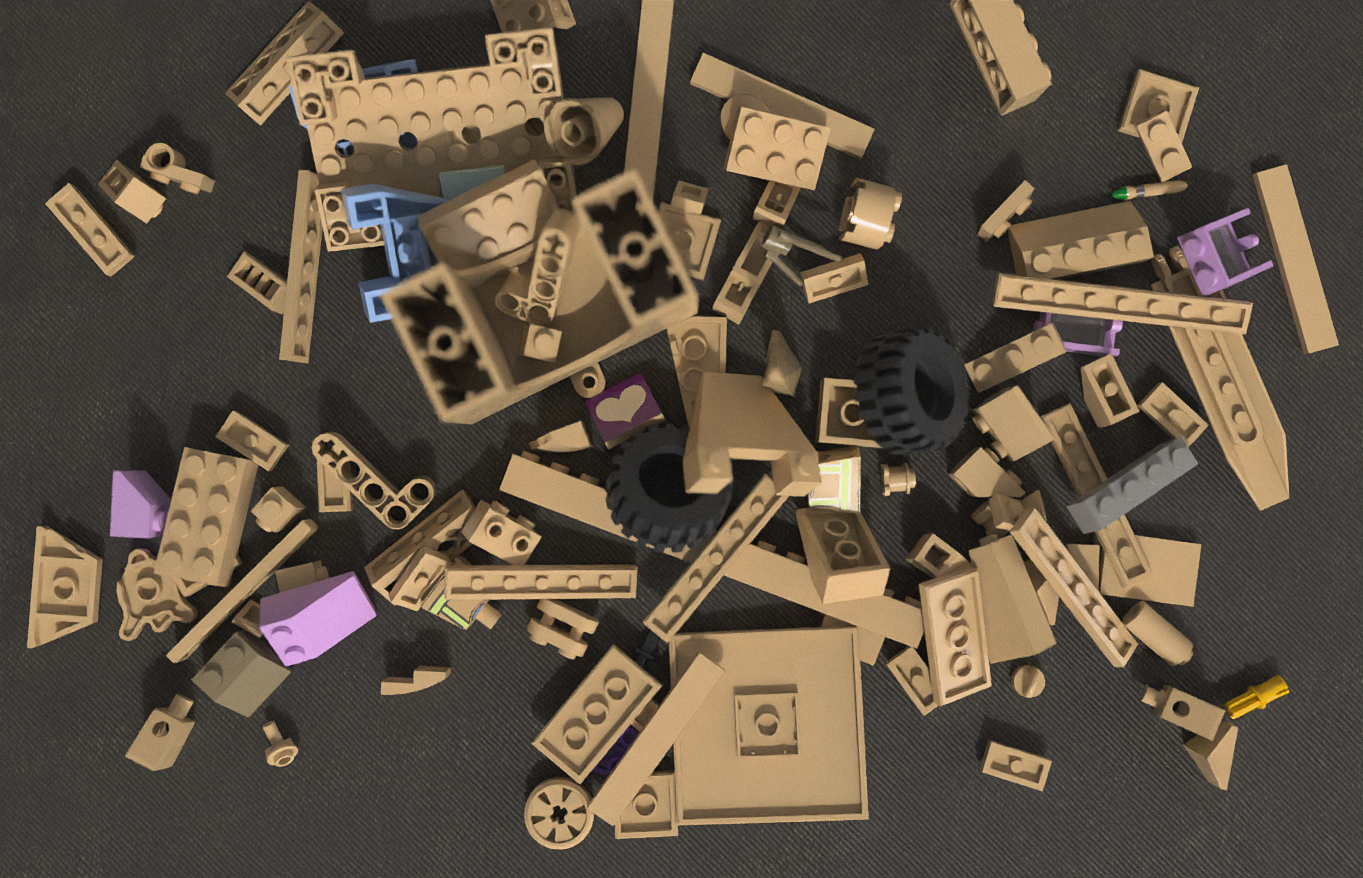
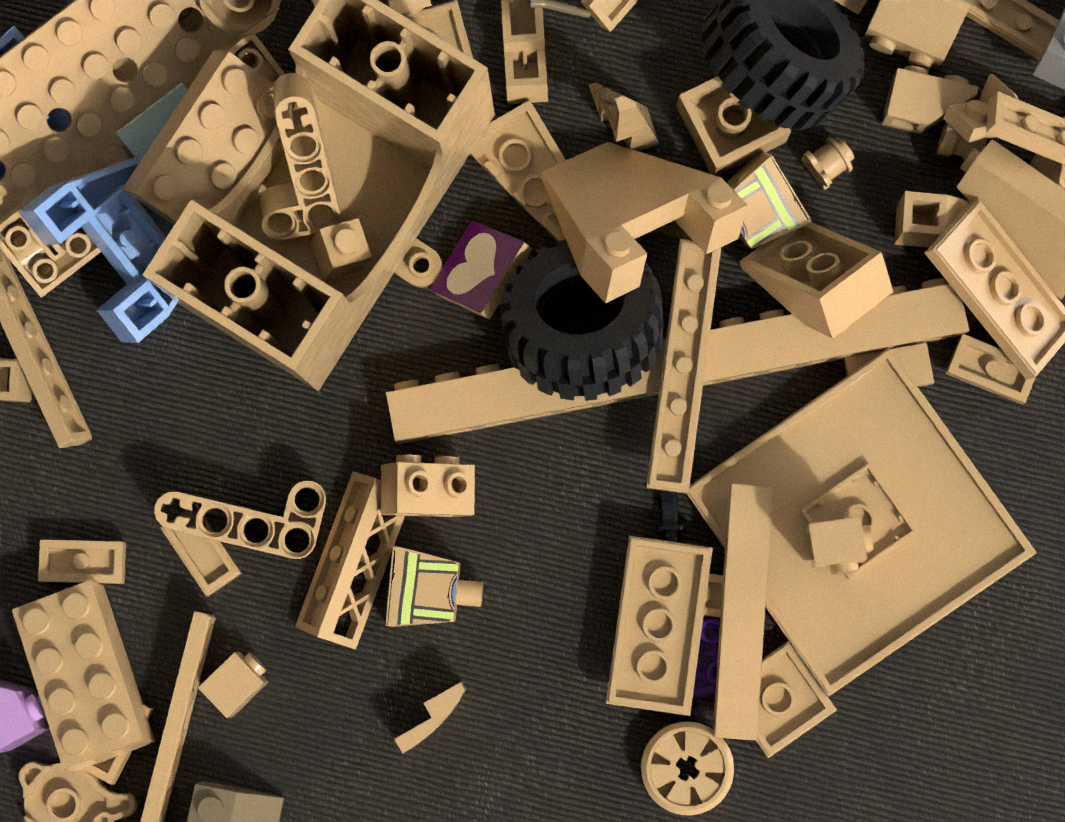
camera: 25 degrees left, 5 degrees down
(249, 618) = (206, 761): tan slope -> none
(277, 510) = (158, 621): tan brick -> none
(314, 617) = (275, 710): lavender slope -> none
(419, 578) = (366, 596): tan plate -> none
(539, 581) = (504, 515): tan tile -> none
(563, 440) = (433, 343): tan slope -> none
(570, 643) = (580, 568): tan brick -> none
(742, 739) = (839, 544): none -> tan brick

